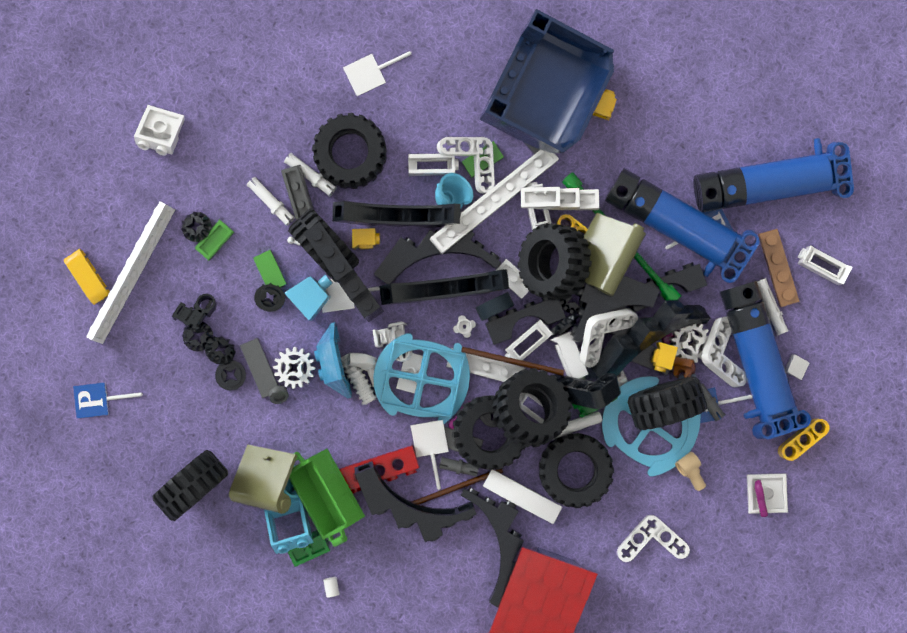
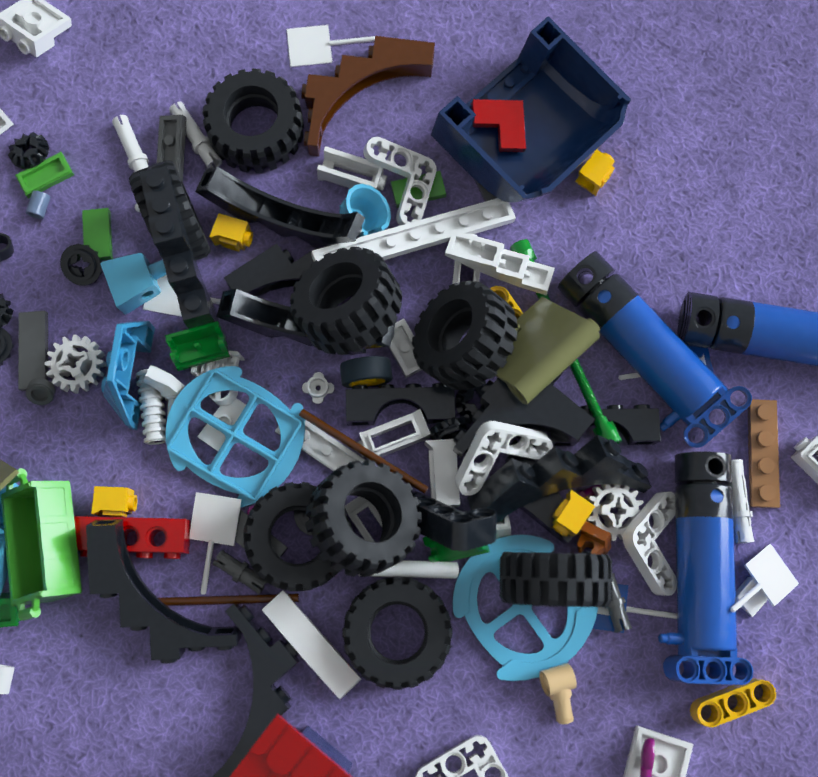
camera: 15 degrees right, 10 degrees down
(219, 264) = (37, 204): none -> sand blue hinge
(358, 450) = (113, 501): none -> yellow window
(375, 328) = (197, 345): none -> green hinge
(428, 68) = (385, 61): none -> reddish brown arch
(484, 283) = (358, 320): none -> black tyre
(529, 87) = (507, 117): none -> red tile
(805, 349) = (770, 575): none -> white piece

